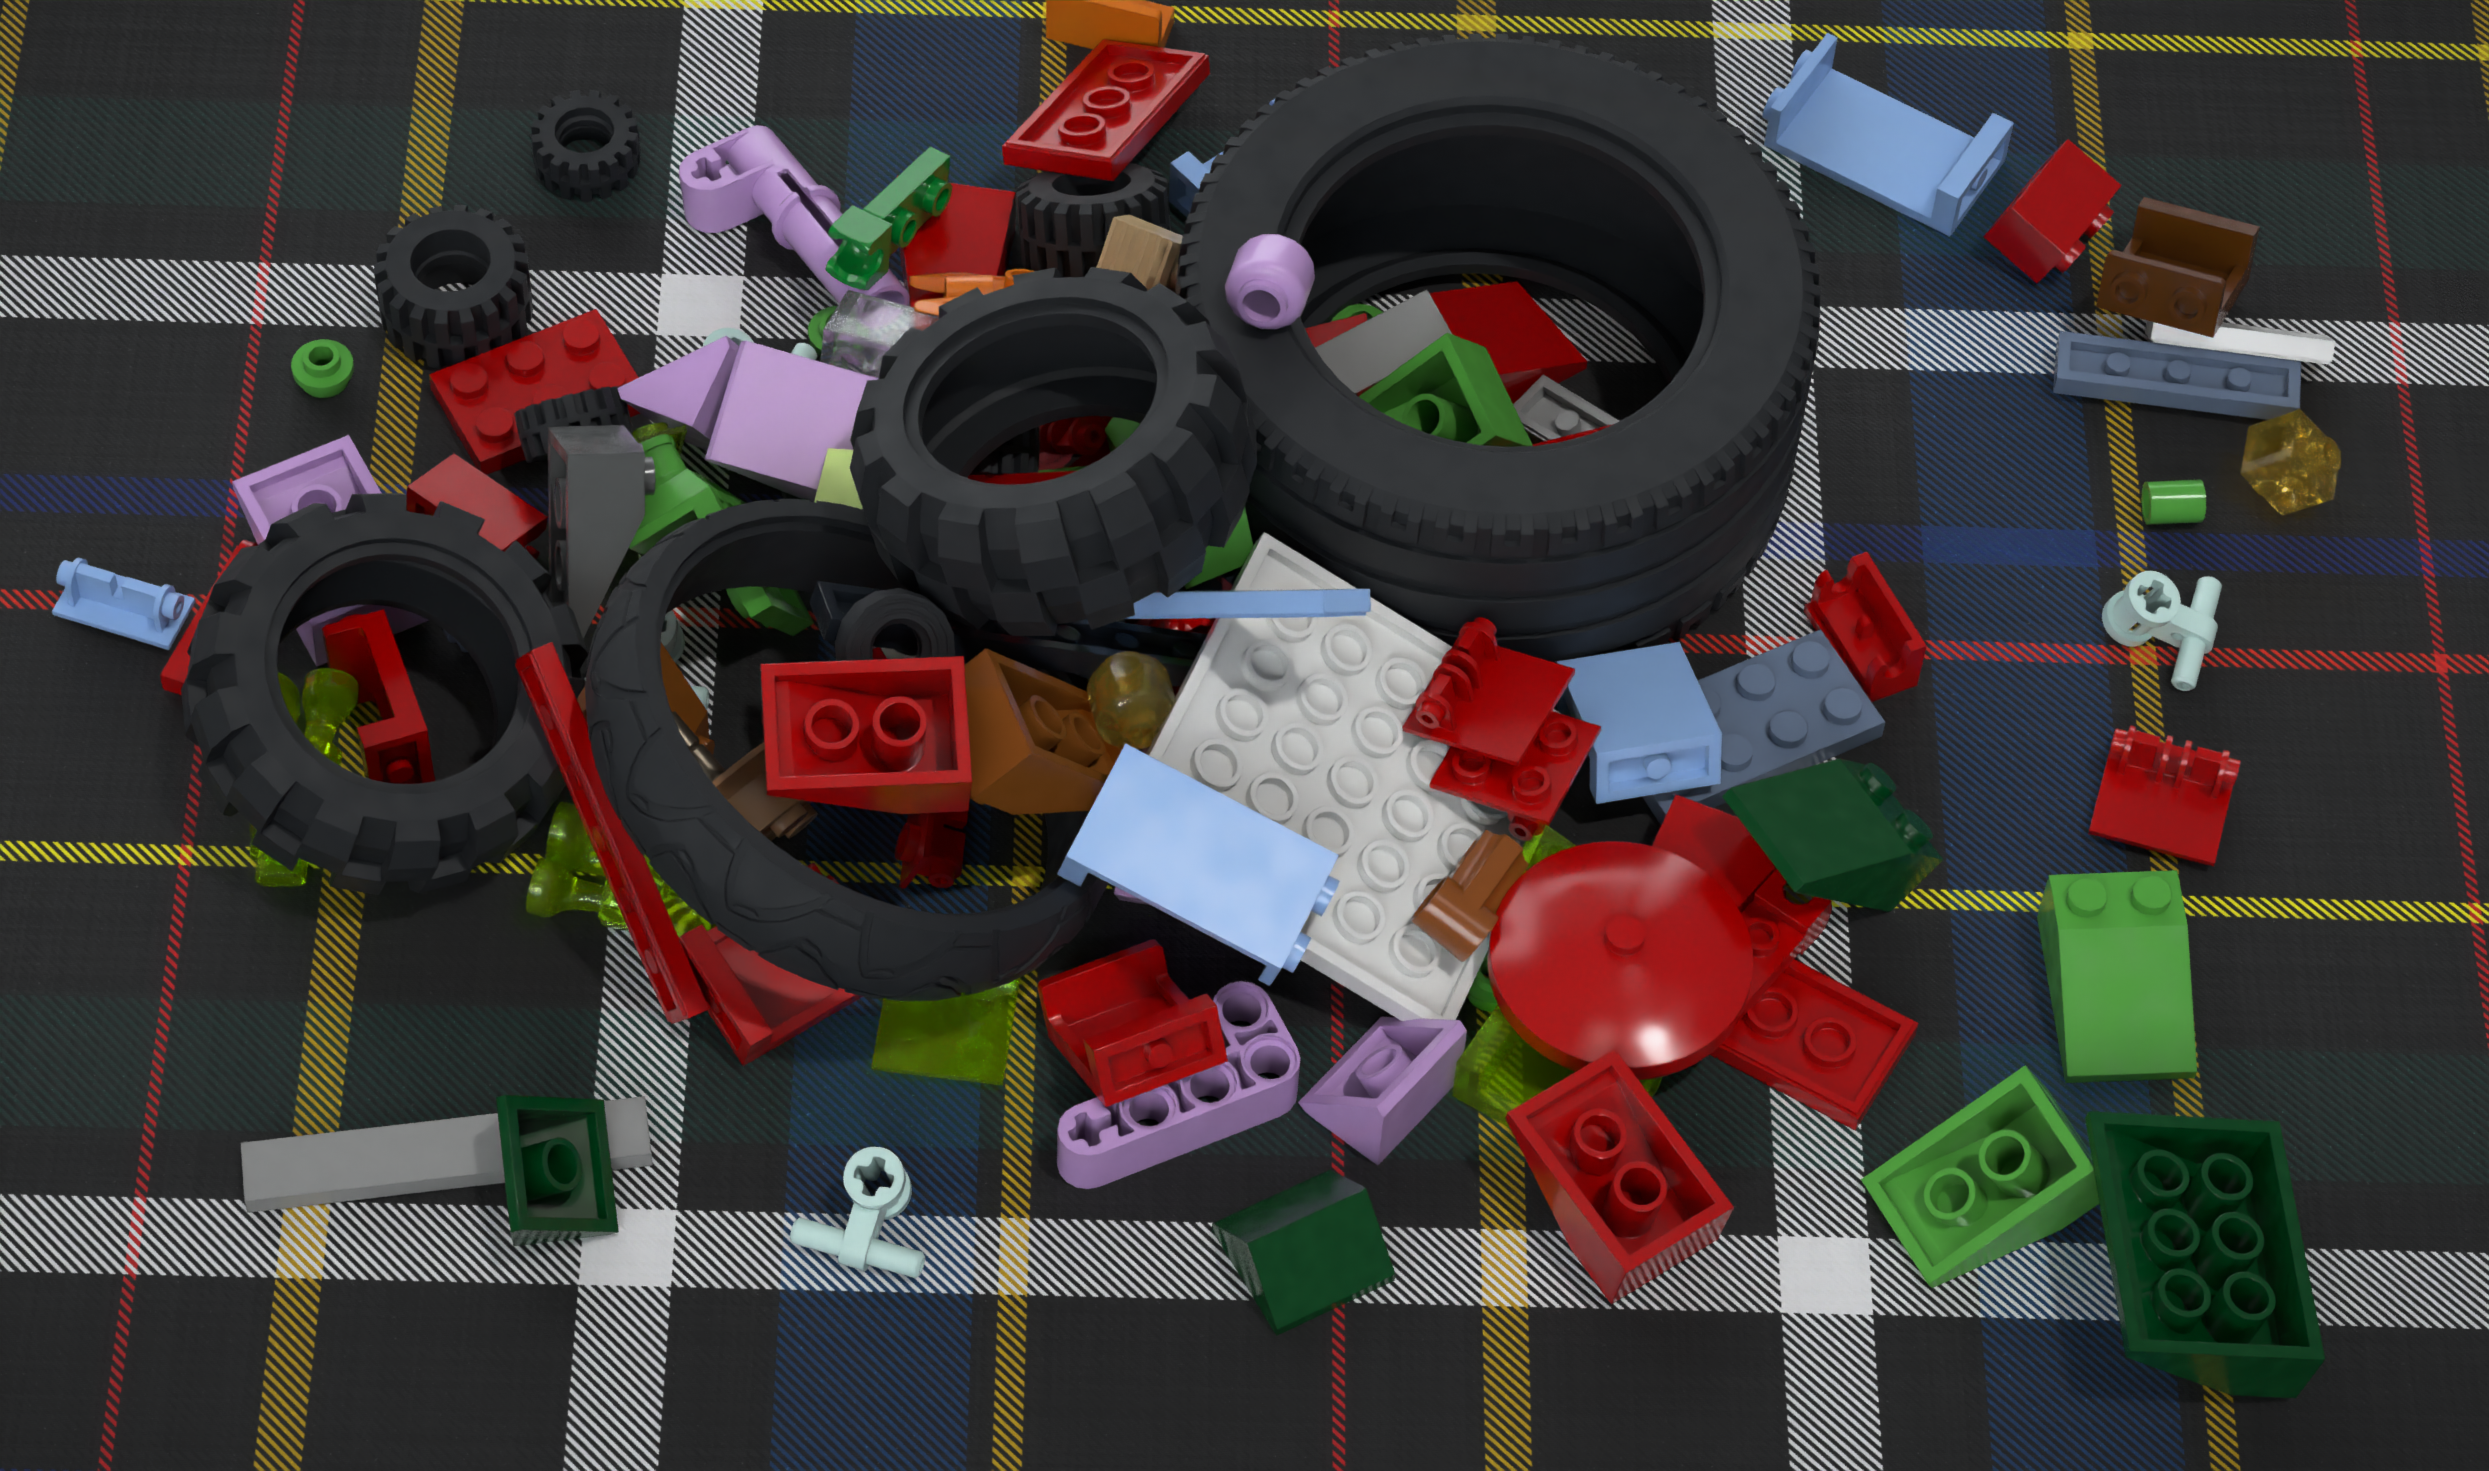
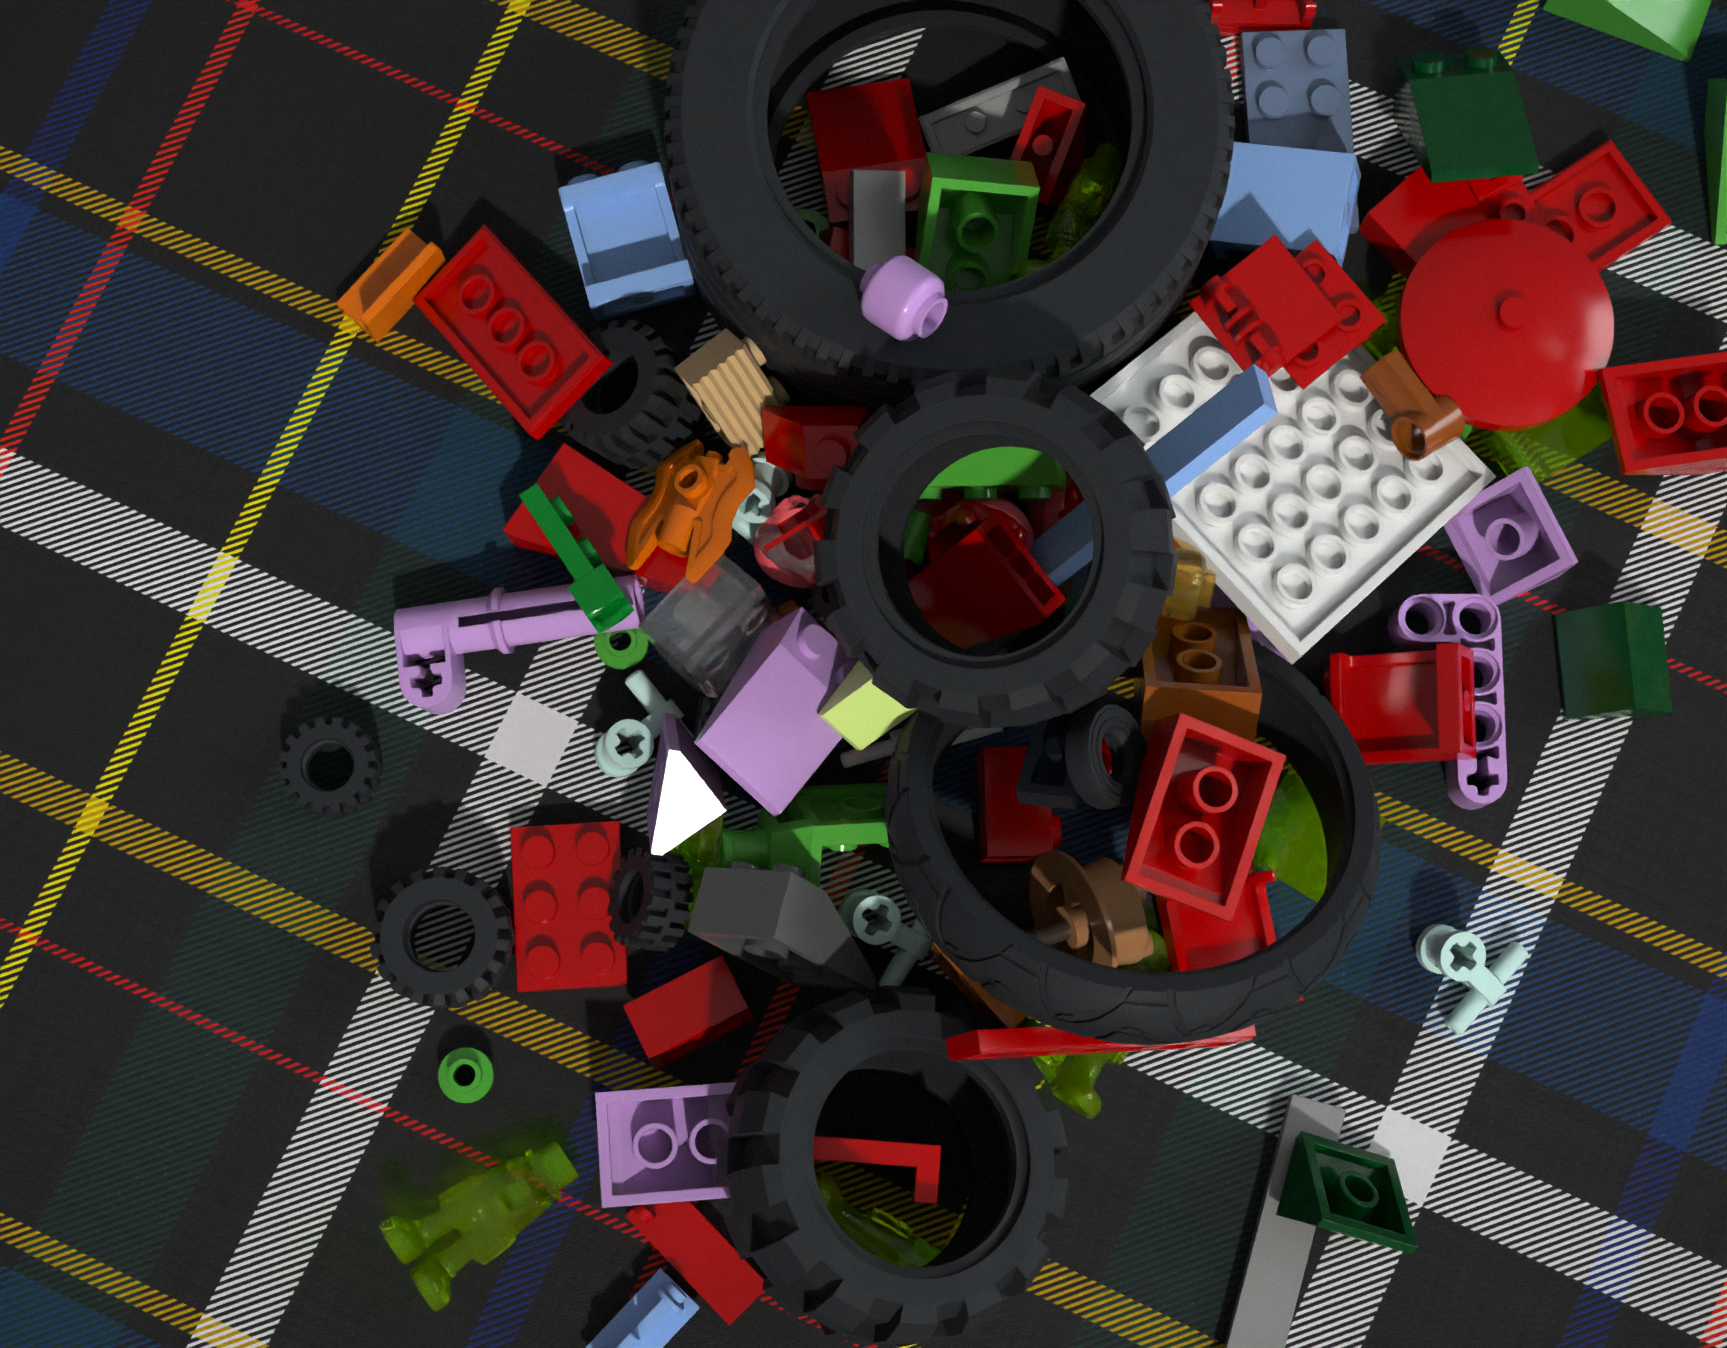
camera: 65 degrees left, 25 degrees up
(179, 429) = (485, 1211): none -> clear neon green piece
(1204, 860) = (1354, 605): light blue panel -> none

